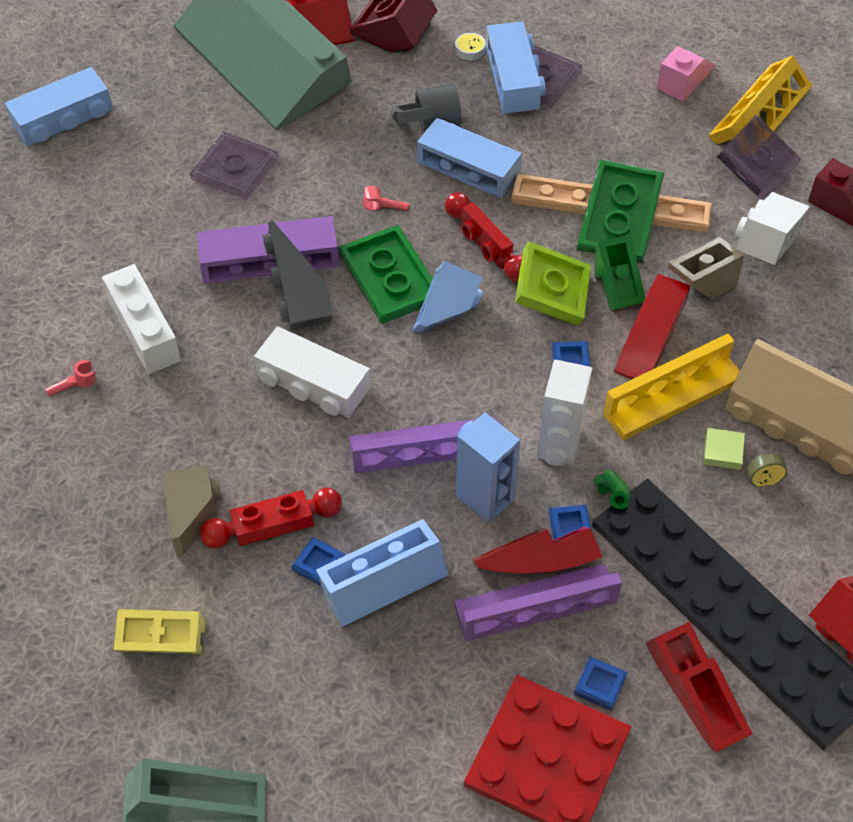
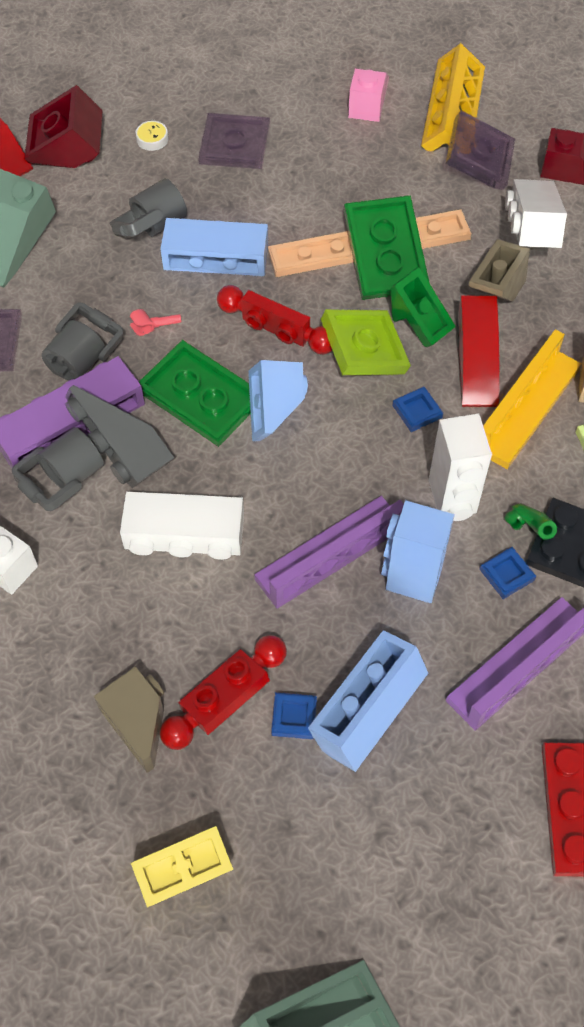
camera: 25 degrees left, 5 degrees up
(246, 284) = (65, 462): none -> dark grey piece
(305, 196) = (77, 345): none -> dark grey piece
(514, 67) = (211, 141): light blue brick -> none
(540, 553) = (502, 613): red slope -> none

